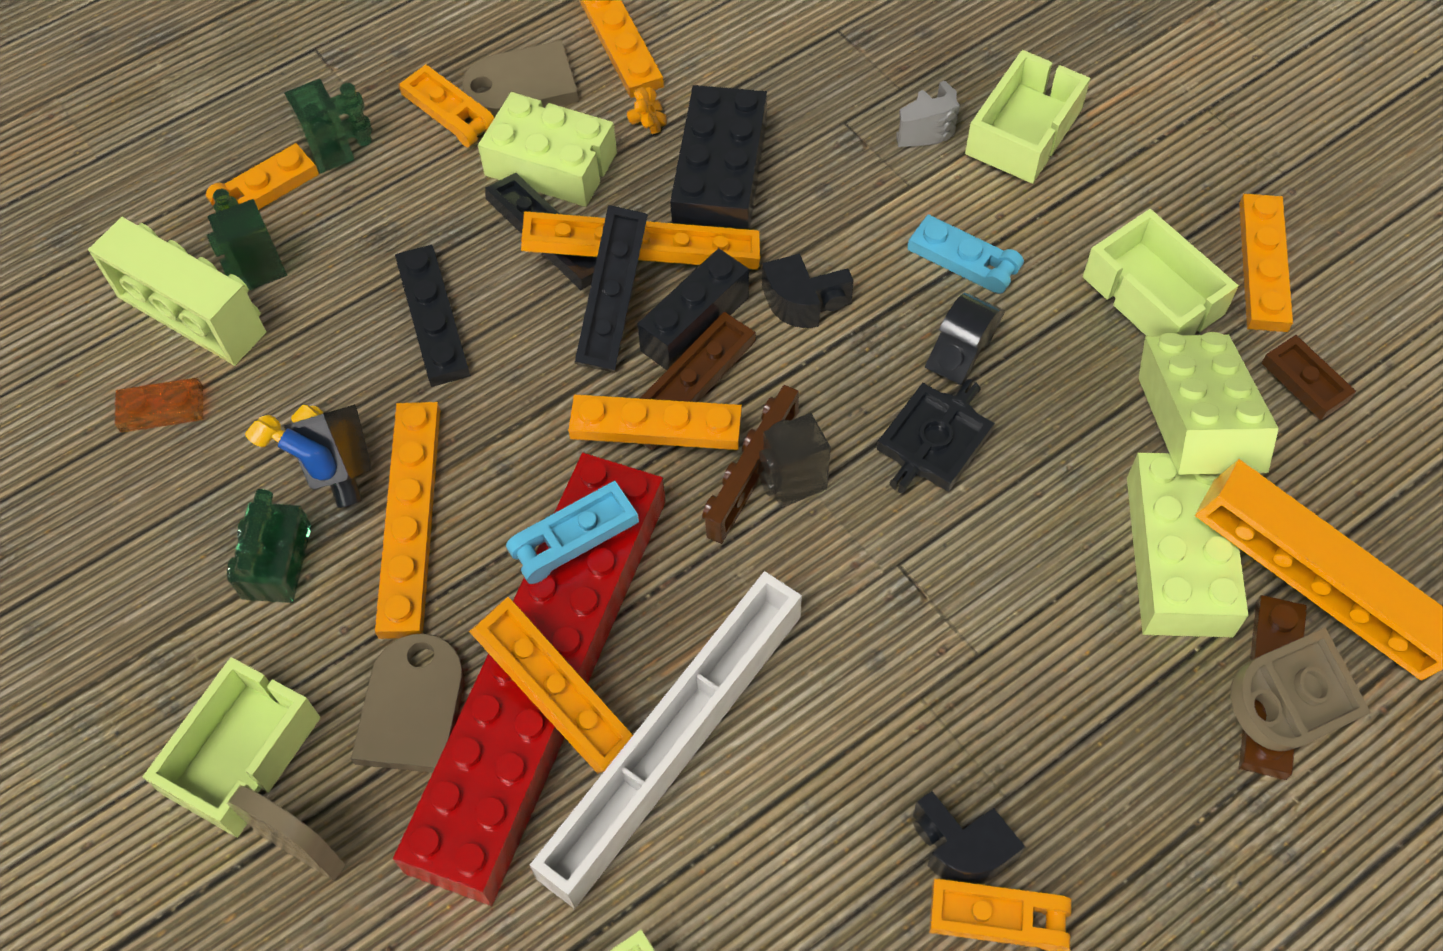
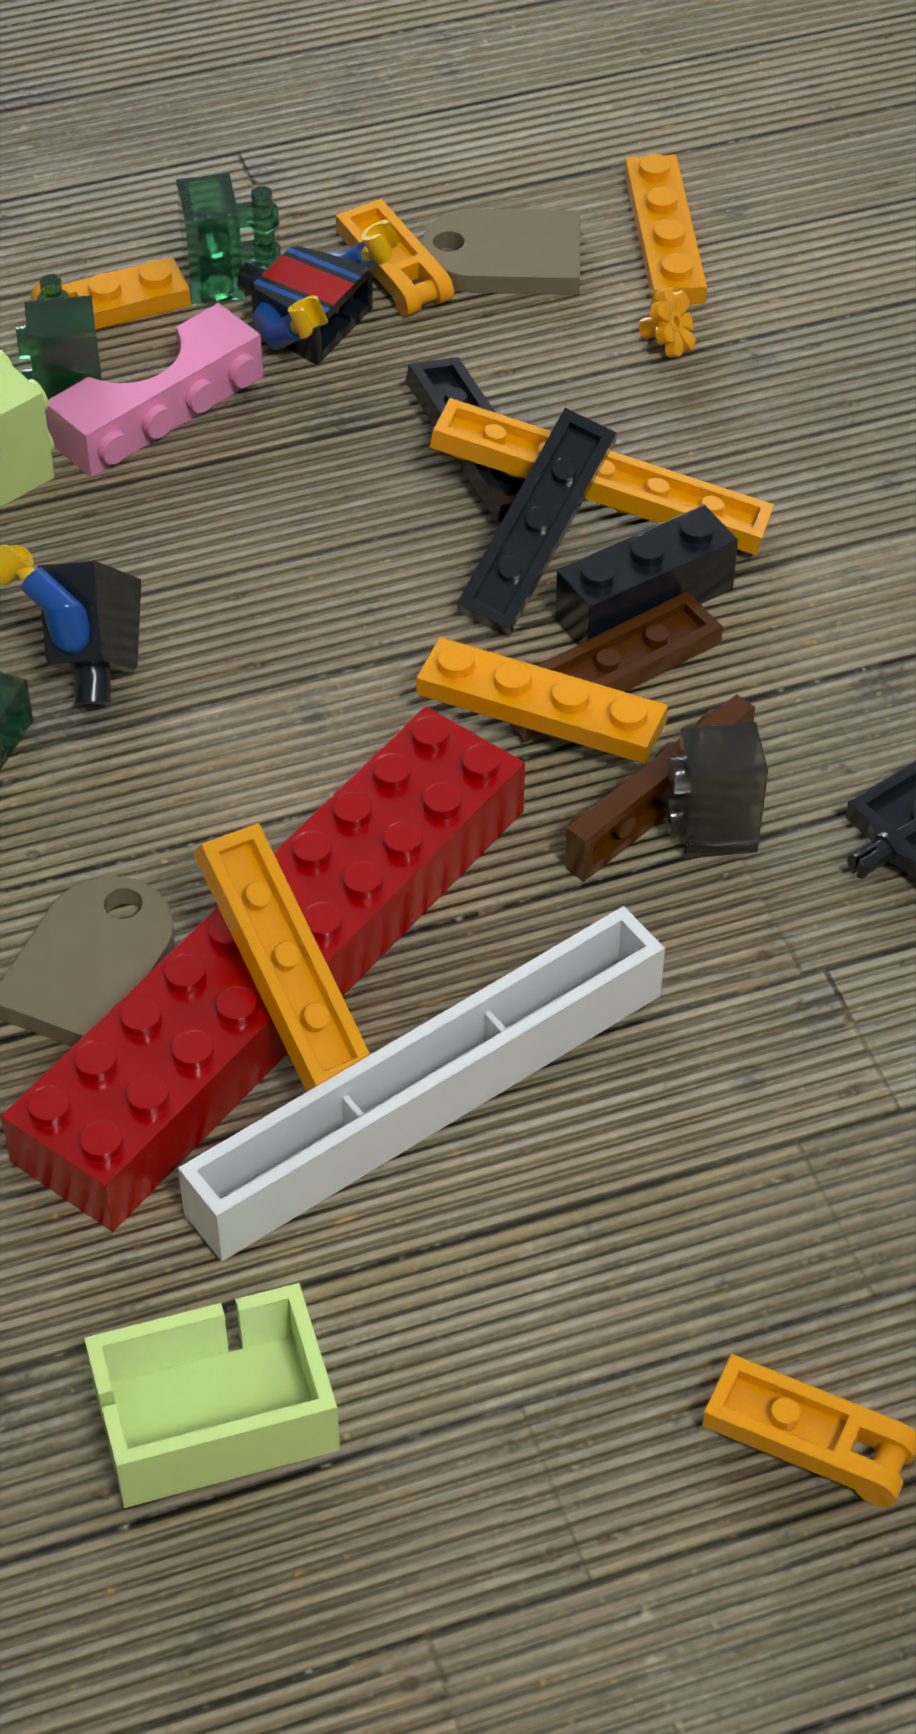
camera: 15 degrees right, 10 degrees down
(291, 283) = (108, 421): none -> bright pink arch
(403, 149) = (313, 296): none -> torso
(408, 521) = (164, 742): light orange plate -> none
(432, 316) = (283, 507): black plate -> none
(549, 148) = (515, 337): yellowish green piece -> none
(572, 531) = (374, 787): medium azure plate -> none
(719, 157) = (751, 399): black brick -> none
(799, 298) = (803, 602): black brick -> none
(969, 853) = (803, 1336): black brick -> none

